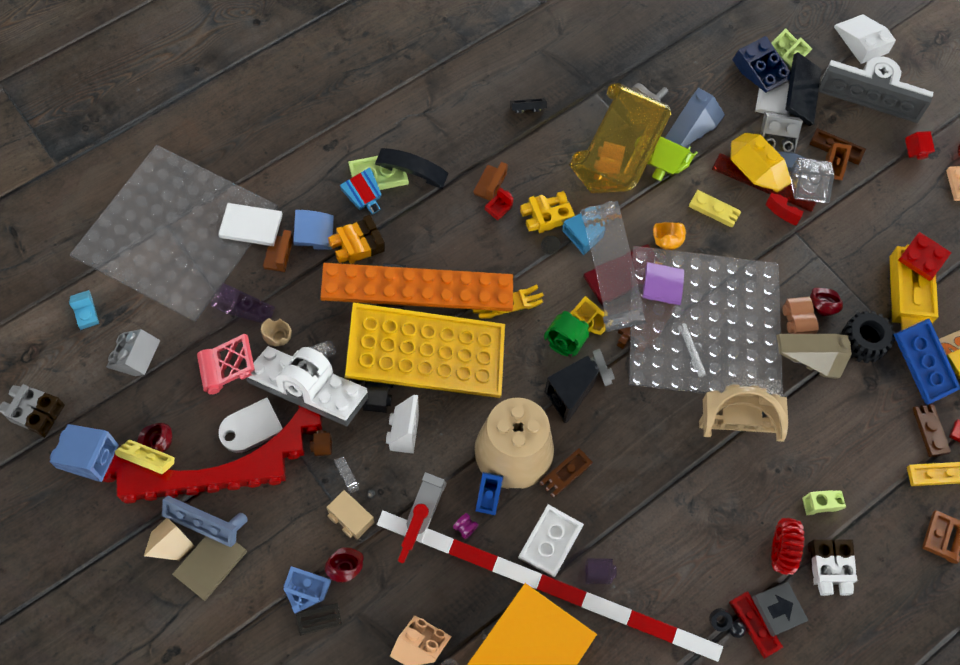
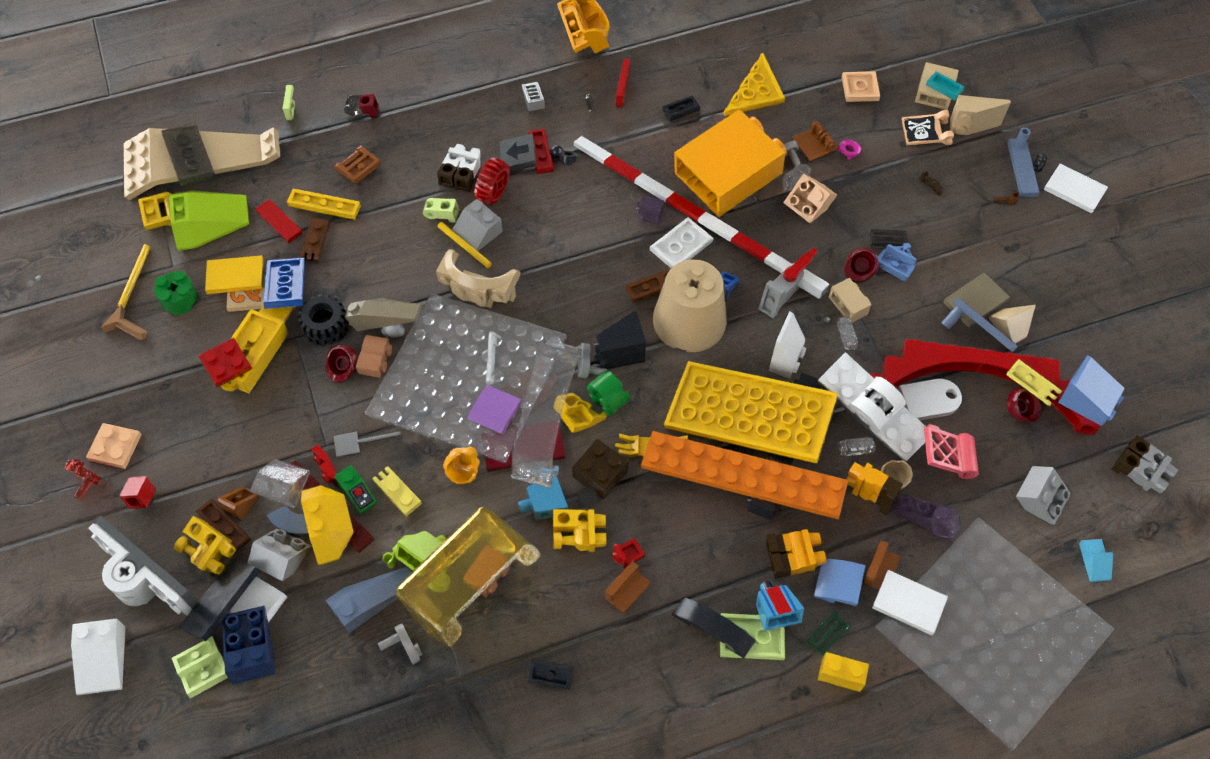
camera: 160 degrees left, 5 degrees down
(295, 310) = (874, 486): none -> light orange hips
(299, 159) = (843, 672): none -> yellow brick
(310, 186) = (839, 621): none -> clear green tile
(321, 443) = (867, 361): reddish brown plate -> none
(465, 526) = (751, 268): magenta wheel -> none
(548, 266) = (600, 468): none -> dark brown brick
(749, 196) = (355, 489): none -> green slope
(775, 494) = (478, 225): none -> light grey slope
(776, 237) = (348, 443): none -> light grey piece
(779, 470) = (464, 245): none -> yellow bar
(838, 122) = (210, 549): none -> yellow hips

